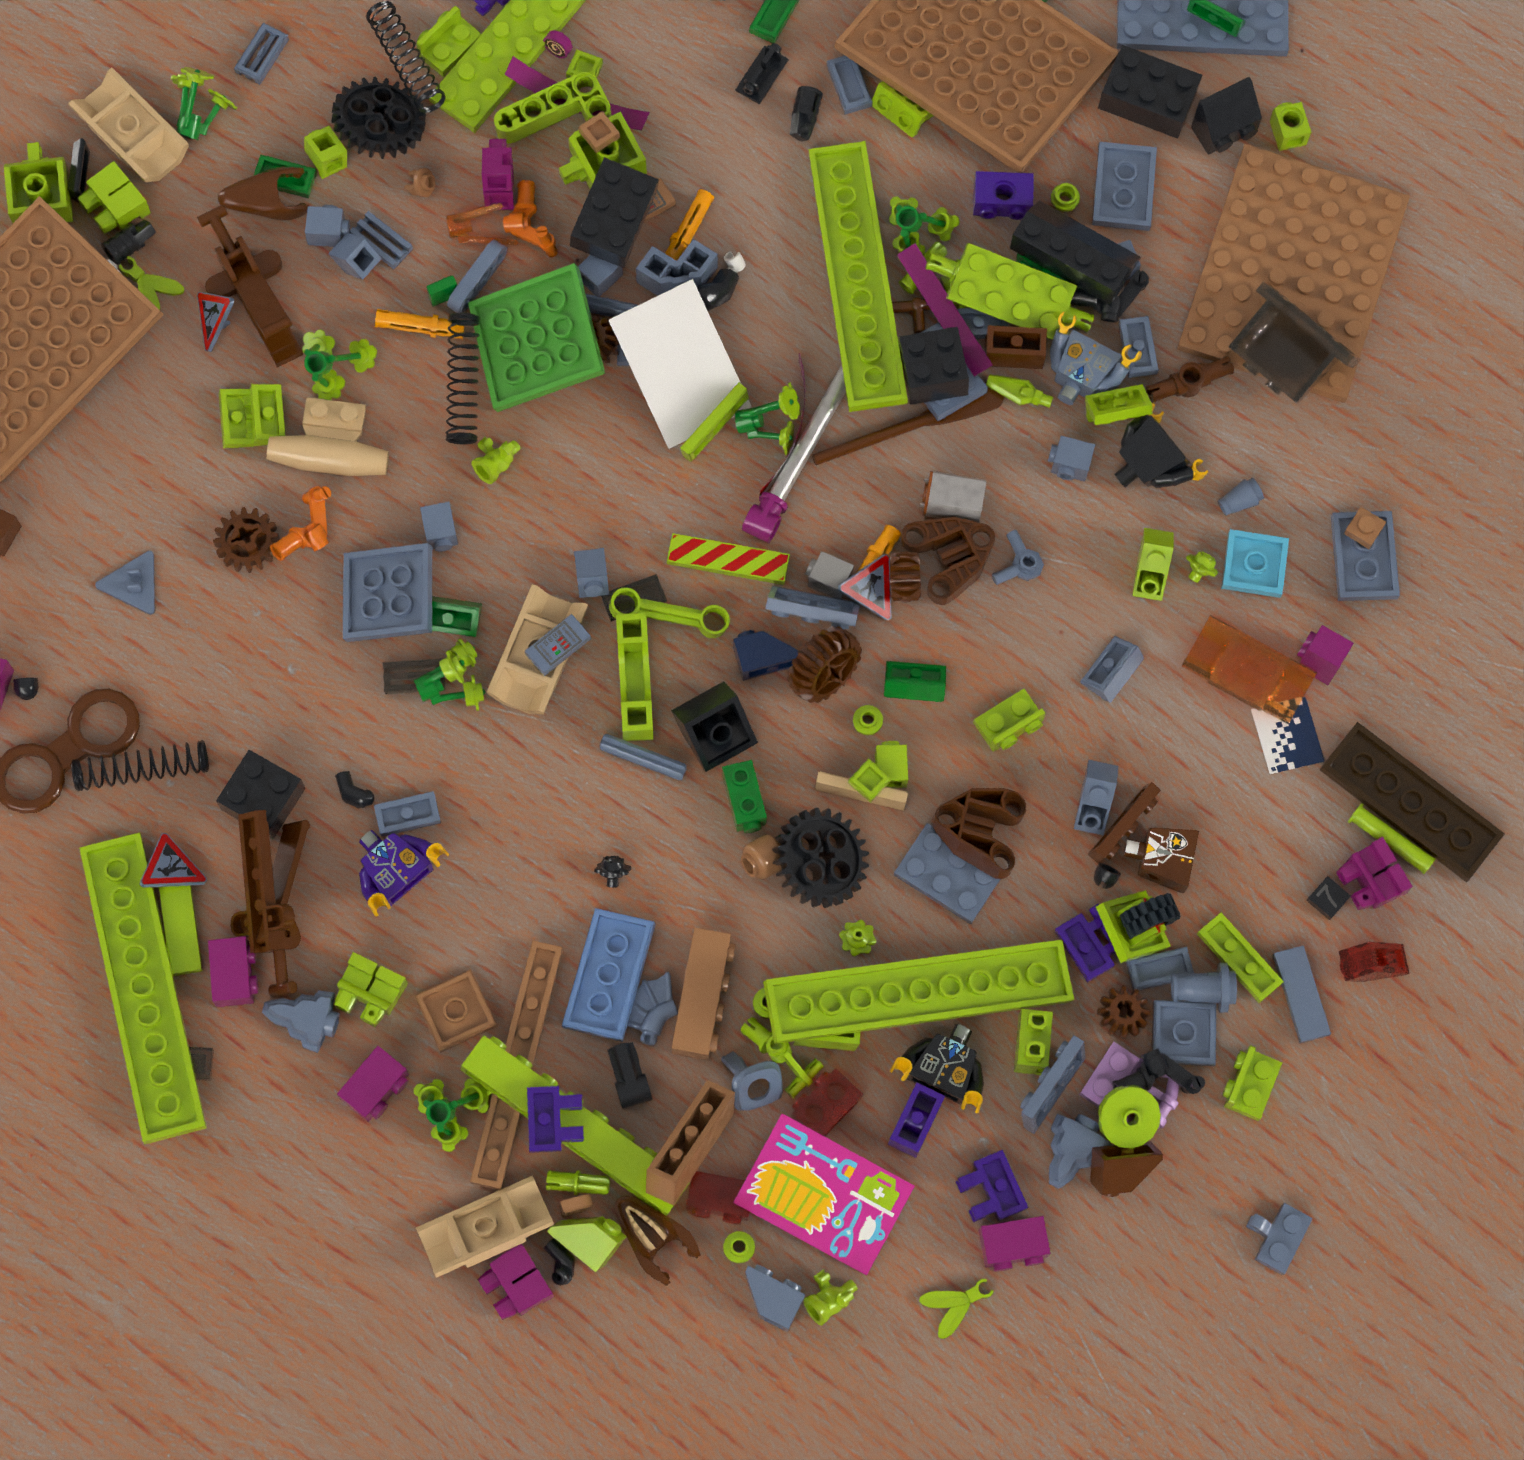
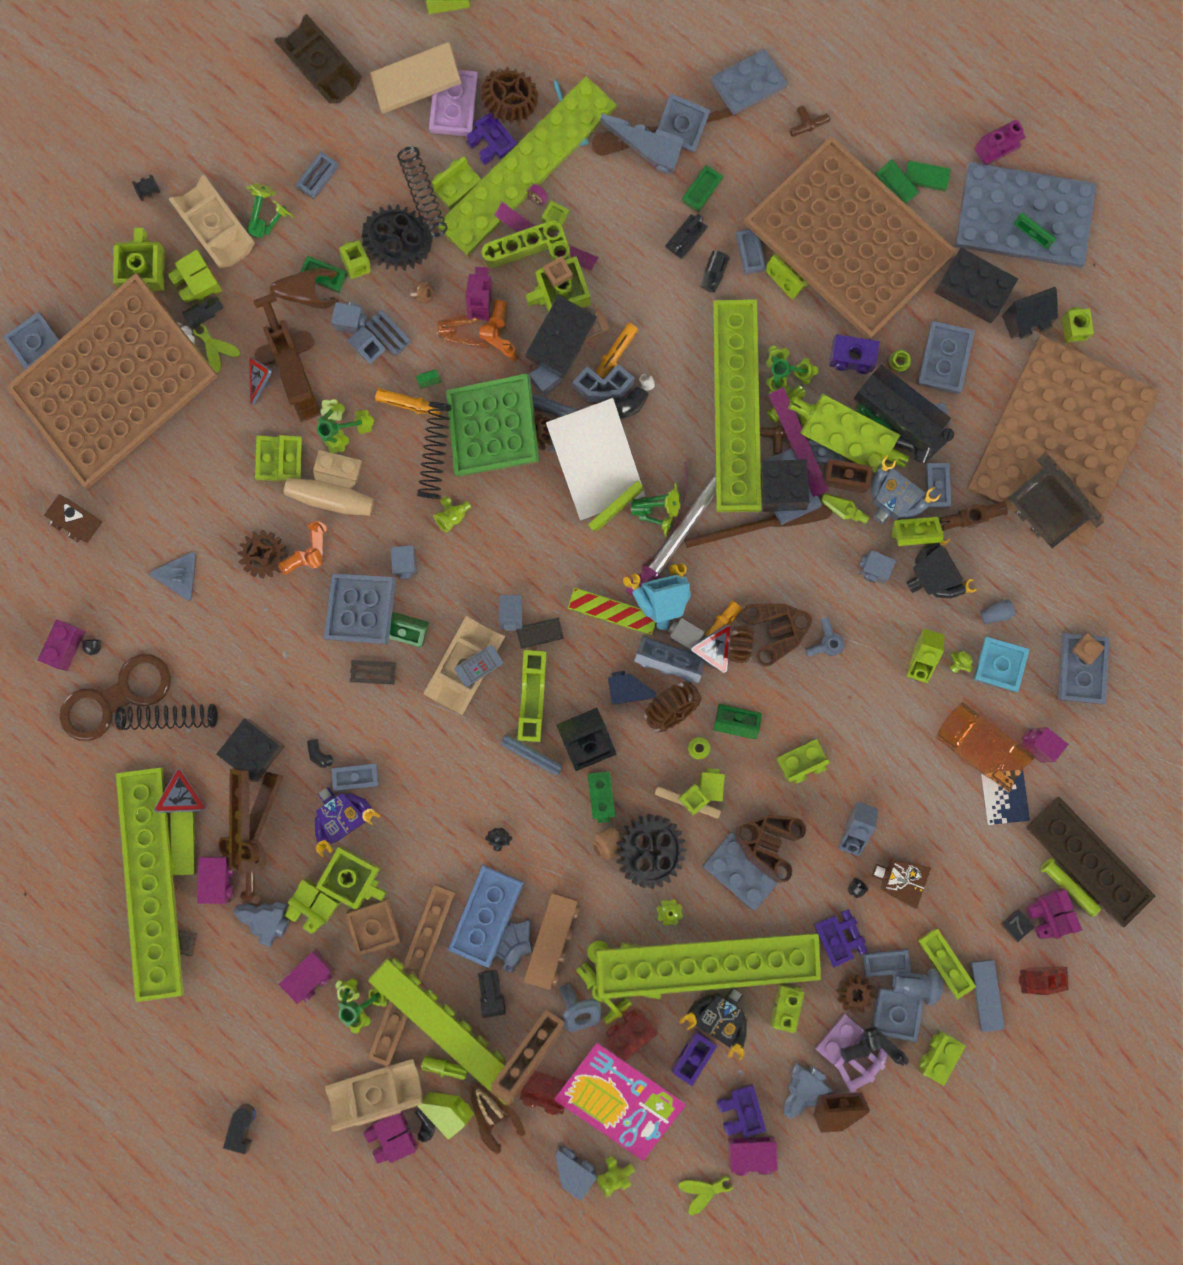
camera: 10 degrees right, 10 degrees up
(34, 93) = (146, 187): none -> black bush
(78, 169) = (171, 251): black tile -> none
(301, 1311) = (239, 1128): none -> black leg
(424, 961) = (364, 878): none -> lime hinge
(453, 668) = (397, 677): lime plant -> none
(477, 276) = (455, 371): sand blue beam -> none
(544, 1119) = (423, 1030): dark purple plate -> none
(575, 1205) = (441, 1085): medium nougat tile -> none
(672, 613) = (564, 649): lime piece -> none
(734, 1256) = (554, 1122): lime plate -> none
(791, 528) = (663, 597): none -> medium azure torso
(953, 496) = (785, 586): flat silver piece -> none
(1052, 1083) = (796, 1045): sand blue plate -> none
(1113, 668) = (883, 730): sand blue slope -> none
(1114, 1113) = (845, 1069): lime plate -> none
(1125, 823) = (876, 851): reddish brown plate -> none
(1138, 923) = (876, 932): lime plate -> none
(1281, 1237) = (946, 1174): sand blue plate -> none

